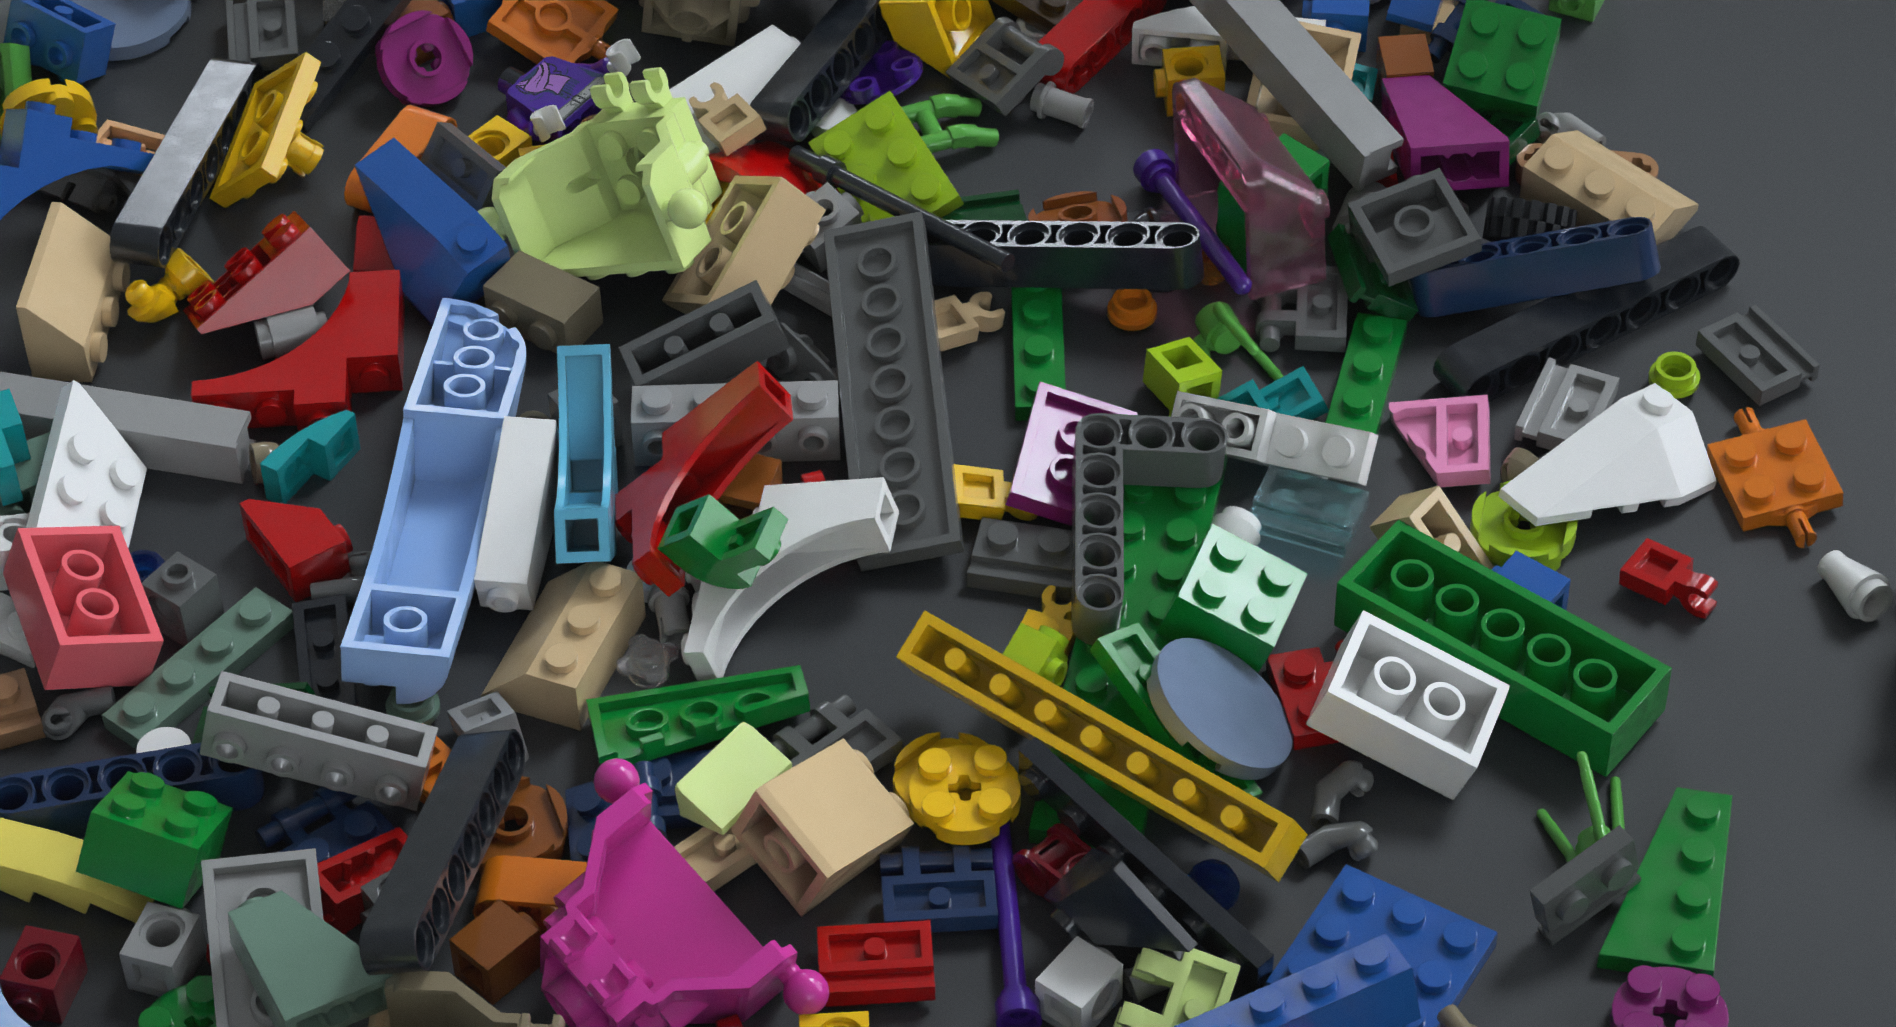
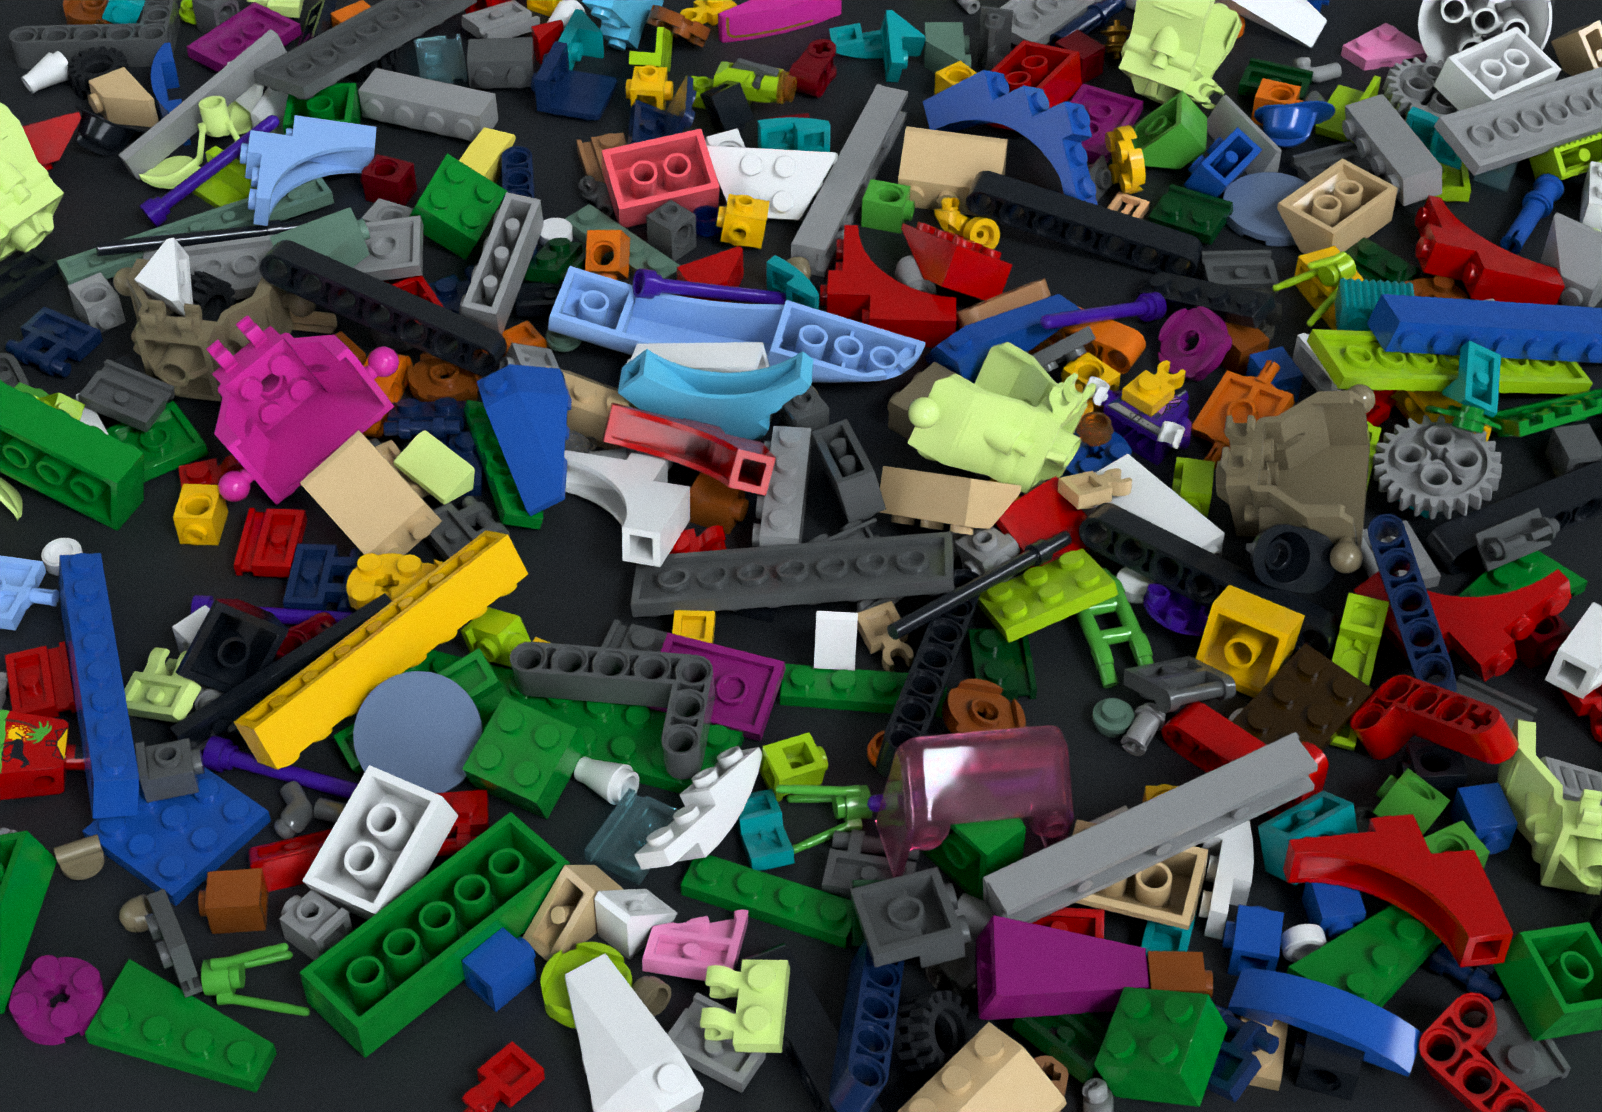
camera: 95 degrees right, 0 degrees up
(123, 364) = (886, 206): none -> bright green brick
(141, 77) = (1192, 213): none -> dark green plate
(166, 514) = (743, 220): none -> yellow brick
(253, 651) = (604, 241): none -> orange brick
(270, 133) = (1105, 263): yellow plate -> none
(334, 230) = (1004, 302): none -> medium nougat beam
(340, 111) = (1147, 307): none -> dark purple piece
(374, 553) = (650, 284): none -> dark purple piece
(533, 81) = (1152, 391): none -> yellow plate
(666, 664) = (531, 426): none -> blue wedge
(678, 55) = (1194, 482): none -> lime brick
(719, 546) = (619, 446): green brick -> none
(982, 351) = (835, 640): none -> white slope
(1046, 132) = (1113, 717): none -> sand green plate
(1268, 923) = (222, 755): none -> dark purple piece
(1322, 934) = (169, 769): none -> dark grey brick
(1404, 832) = (287, 860): none -> red slope
(1449, 473) = (628, 916): none -> white slope
(1493, 860) = (235, 901): none -> dark orange brick
(1509, 776) = (314, 924): none -> light grey brick
(1531, 962) = (133, 913): none -> dark tan hinge
(1536, 354) = (760, 1005): none -> yellowish green plate

